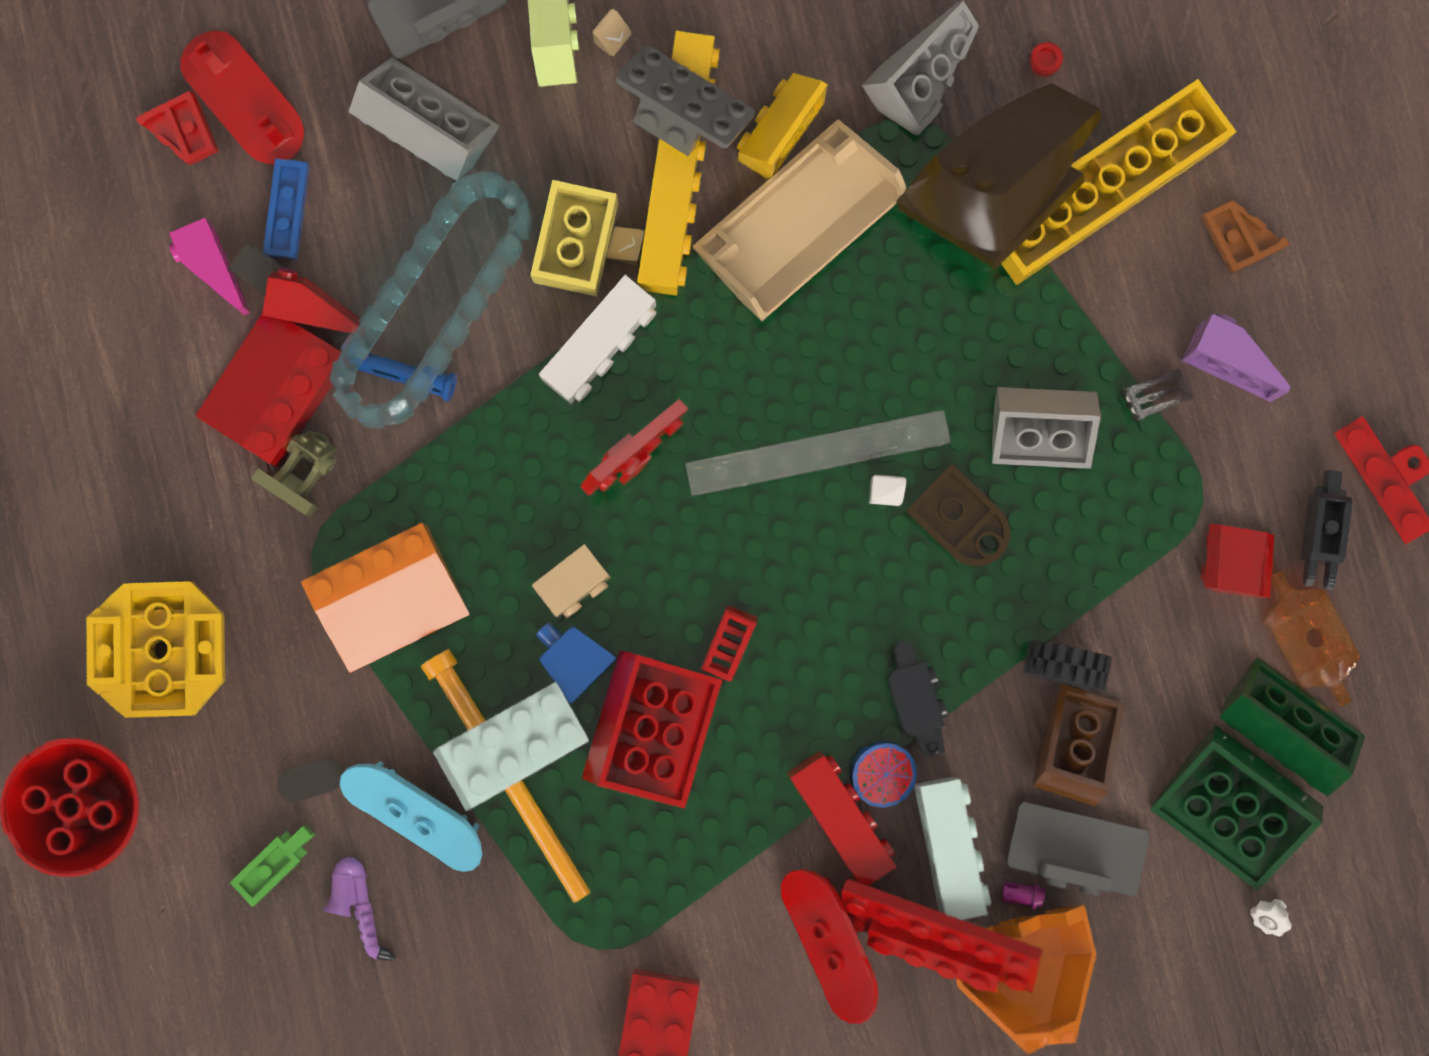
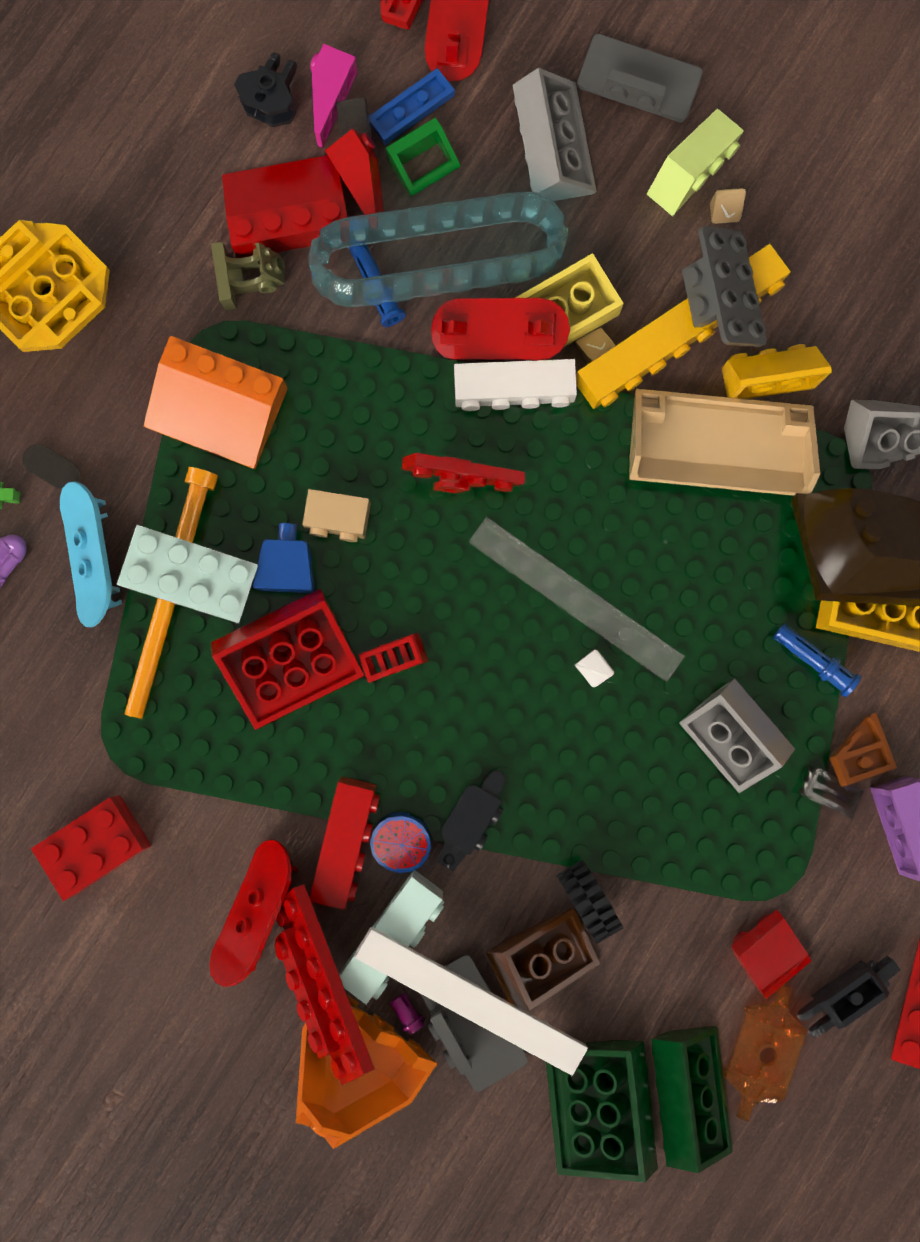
camera: 45 degrees right, 0 degrees up
(162, 313) = (268, 92): none -> black hinge
(321, 238) = (414, 145): none -> green tile
(542, 311) = (500, 329): none -> red piece
(959, 516) = (622, 734): dark brown tile -> none
(1057, 305) = (828, 668): none -> blue pin
(1059, 830) = (470, 1001): none -> white tile
(1149, 341) = (863, 753): none -> dark orange wing
(1271, 917) = (548, 1202): white piece -> none

